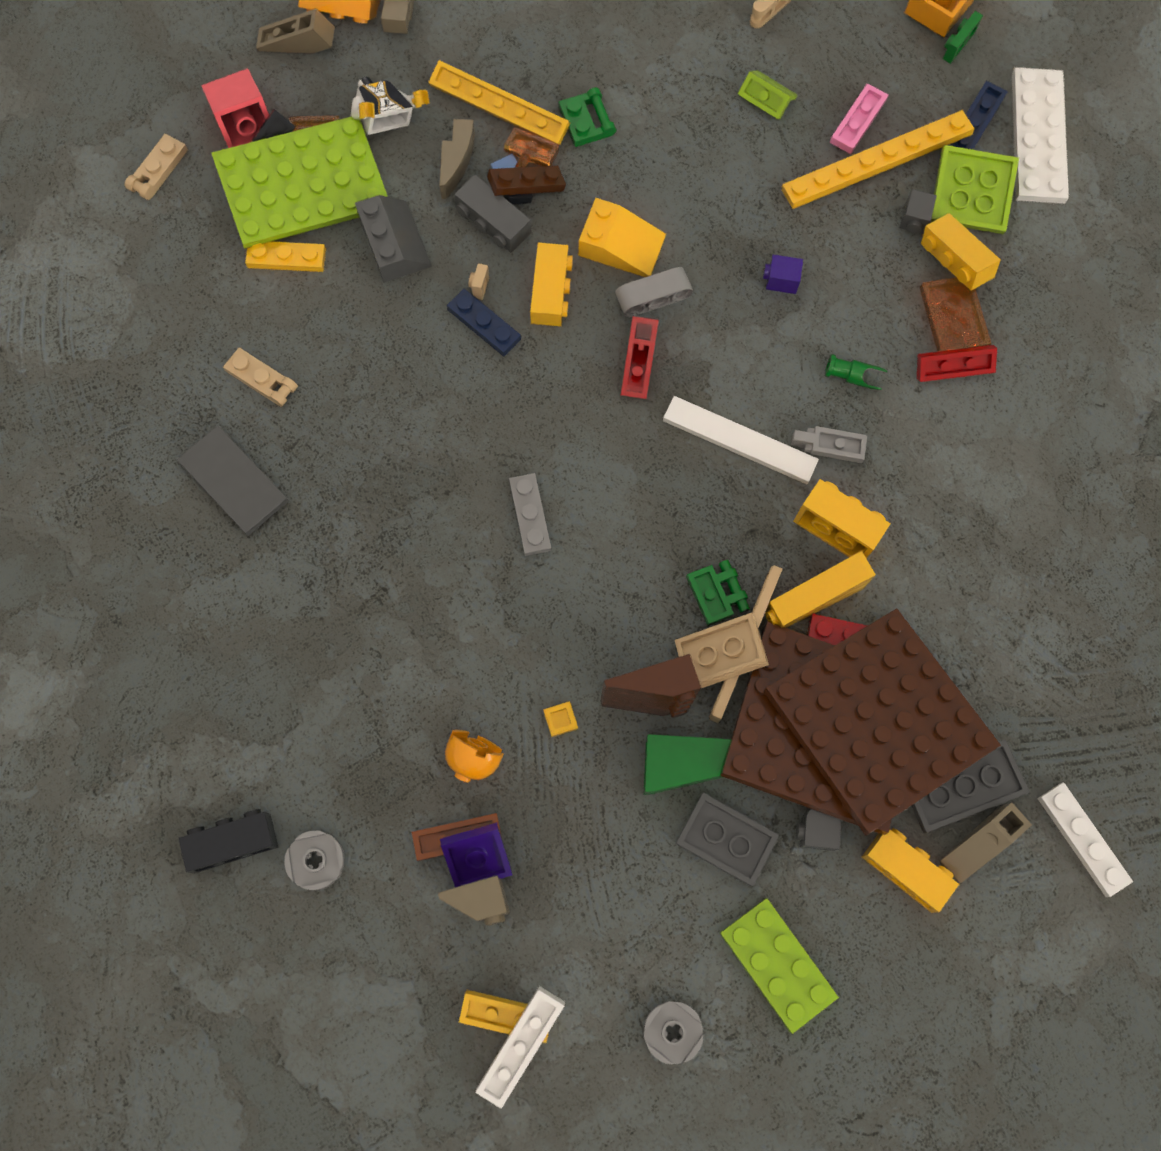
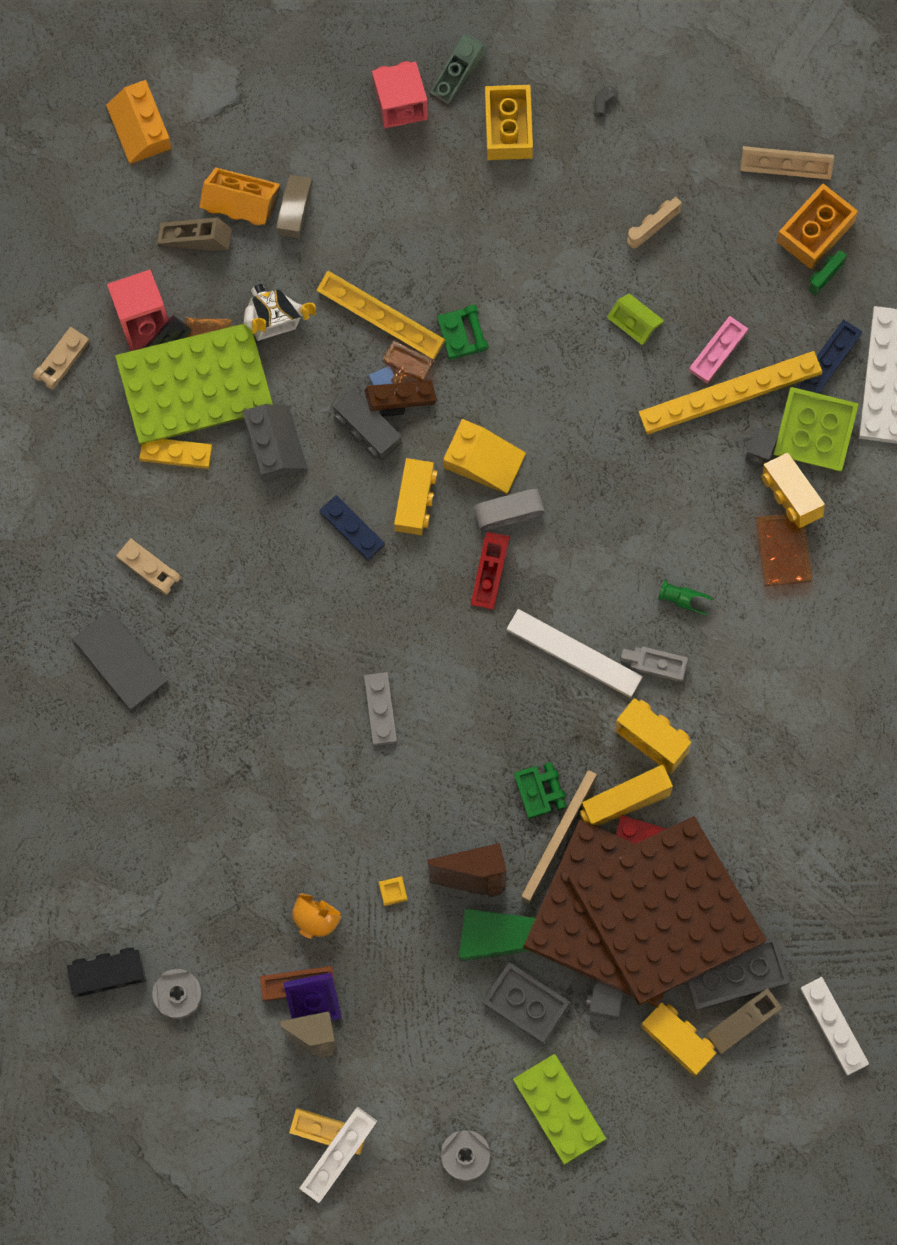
camera: 10 degrees right, 0 degrees up
(456, 155) = (337, 365): dark tan slope -> none
(479, 280) = (350, 489): tan plate -> none
(724, 650) = (536, 843): tan tile -> none
(783, 274) = (629, 500): dark purple brick -> none
(956, 363) = (778, 595): red plate -> none

